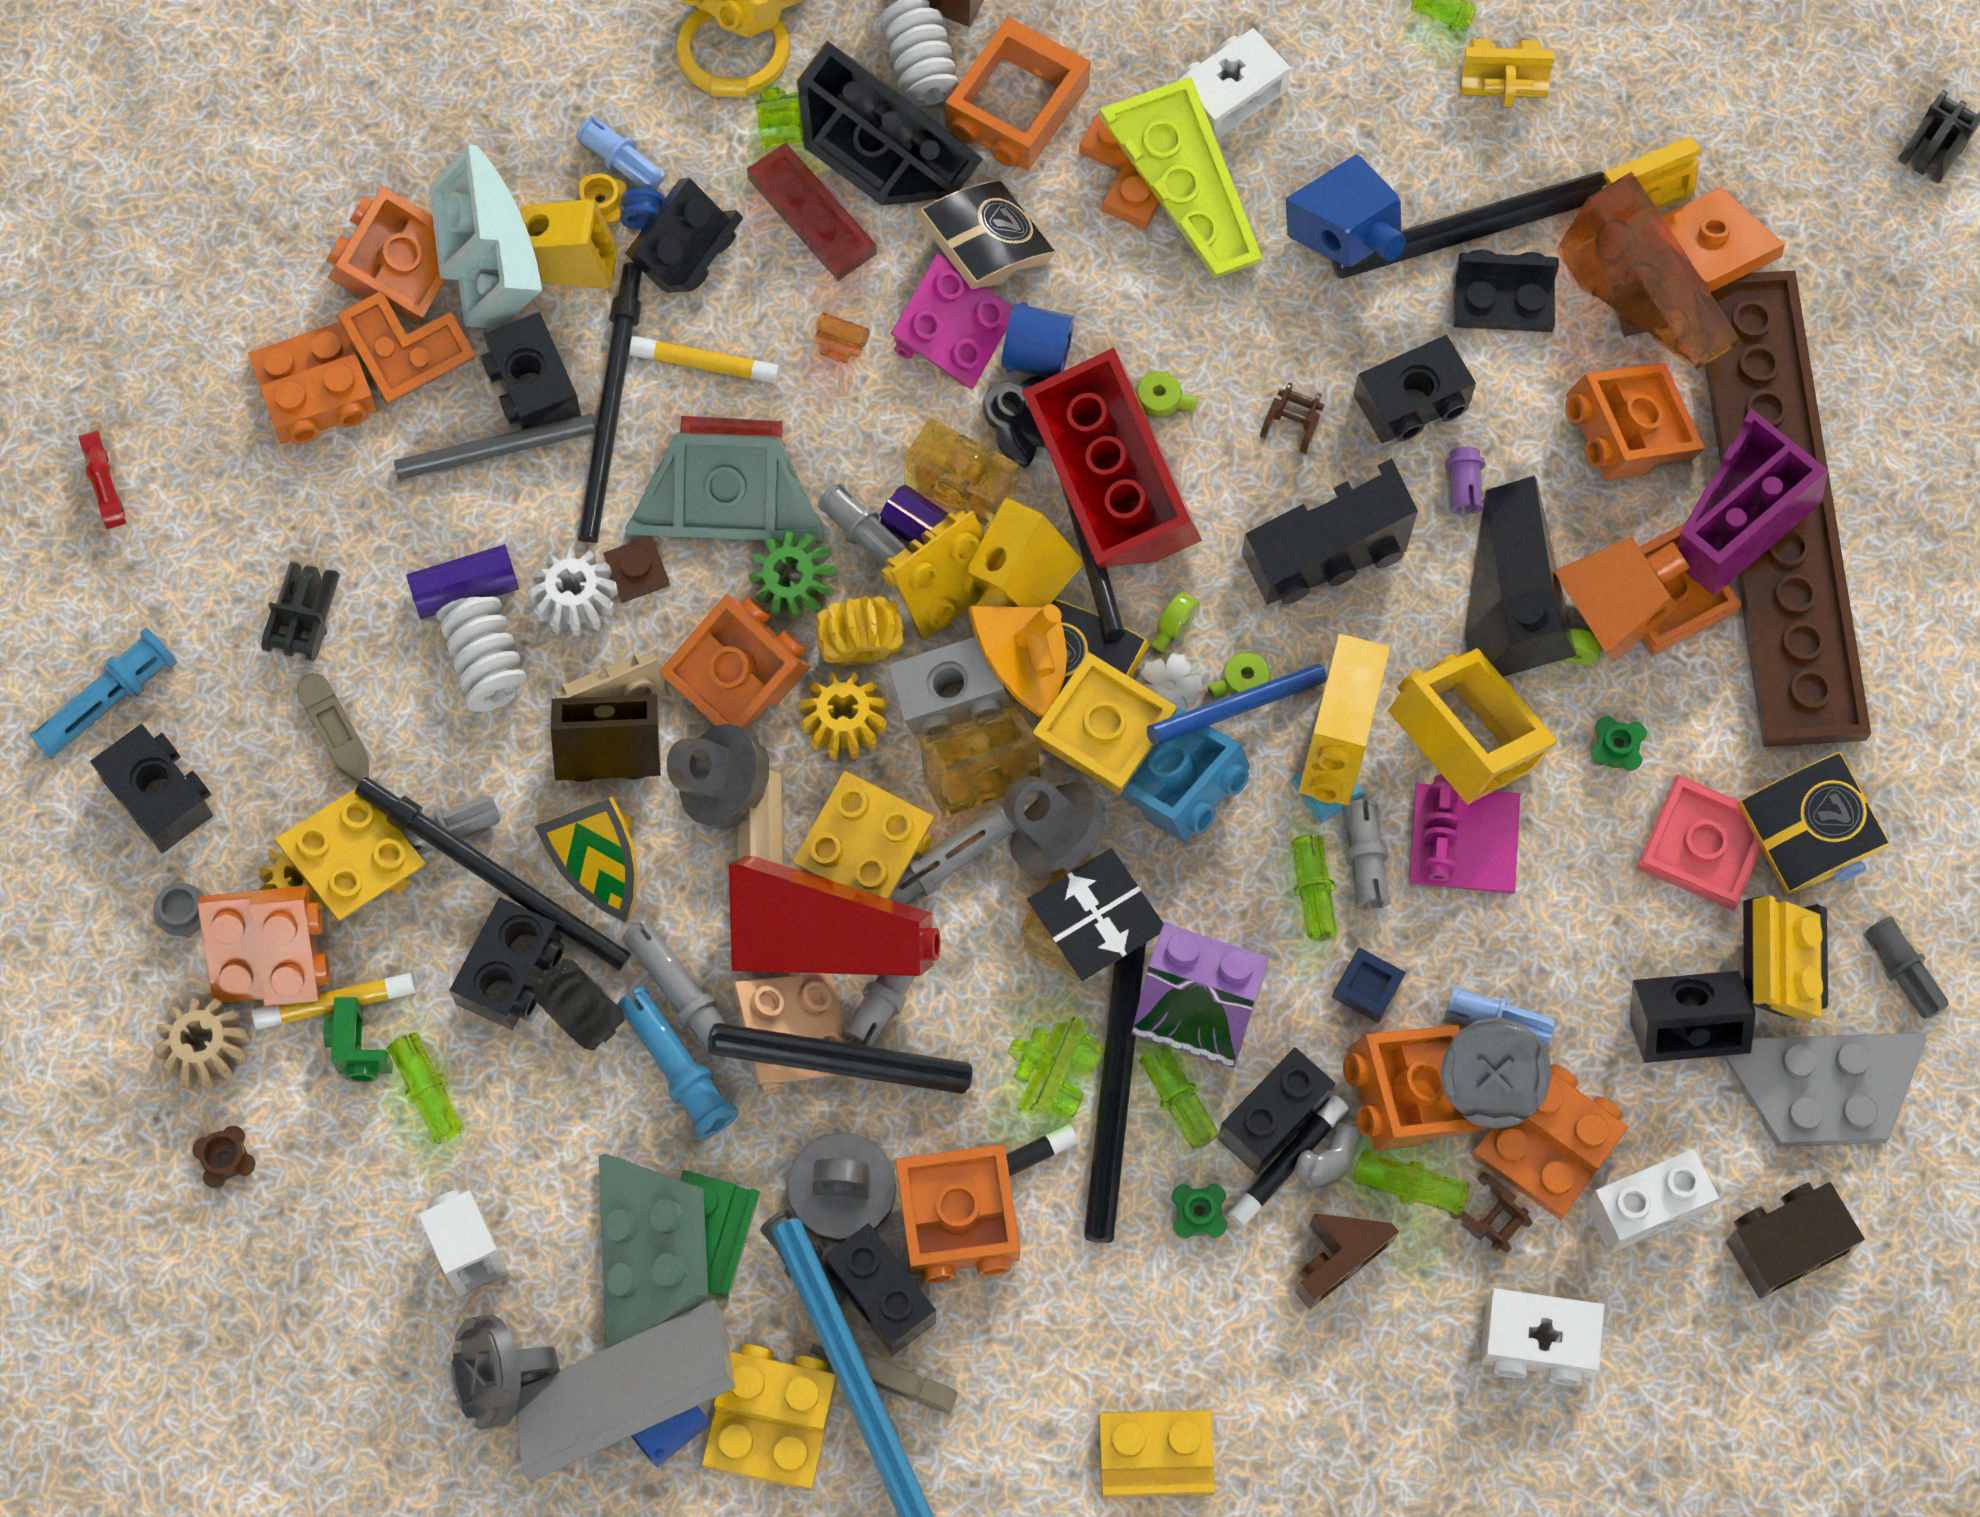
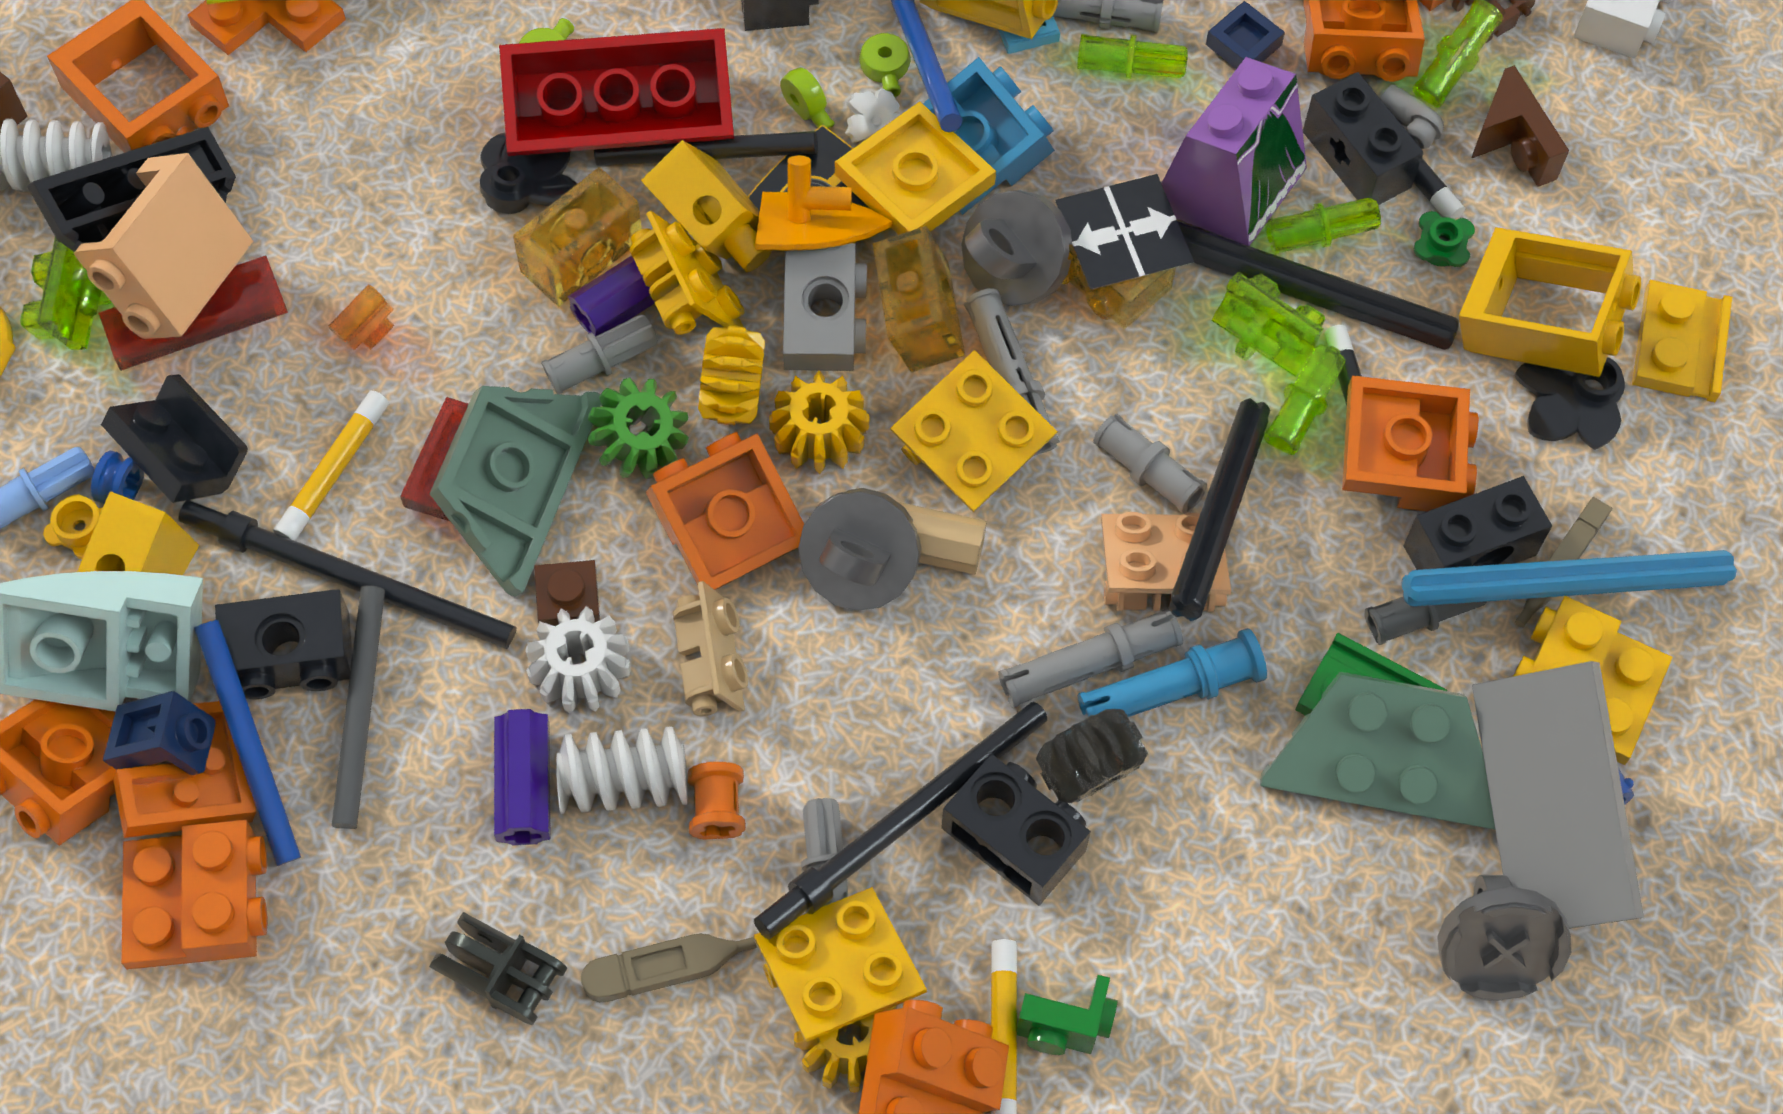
camera: 75 degrees left, 5 degrees down
(419, 312) = (160, 731): none -> dark blue bracket
(425, 1087) = (1140, 952): clear neon green pin -> none
(434, 374) = (247, 742): none -> blue bar
(462, 1241) = (1351, 934): white brick -> none
(477, 730) = (716, 800): none -> orange bush
(595, 854) = (913, 701): shield -> none
(605, 737) = (776, 657): dark brown brick -> none
(820, 926) = (1072, 484): red slope -> none
(835, 167) = (167, 249): none -> light nougat panel
(841, 1186) = (1347, 555): flat silver tile -> none
(951, 323) = (385, 213): dark pink hinge -> none
(985, 233) = (297, 150): black slope -> none
(987, 1117) = (1305, 399): none -> clear neon green axle
(1037, 341) = (447, 132): blue piece -> none
(1056, 1354) = (1571, 406): none -> black plate
(1147, 1262) = (1557, 262): none -> yellow window

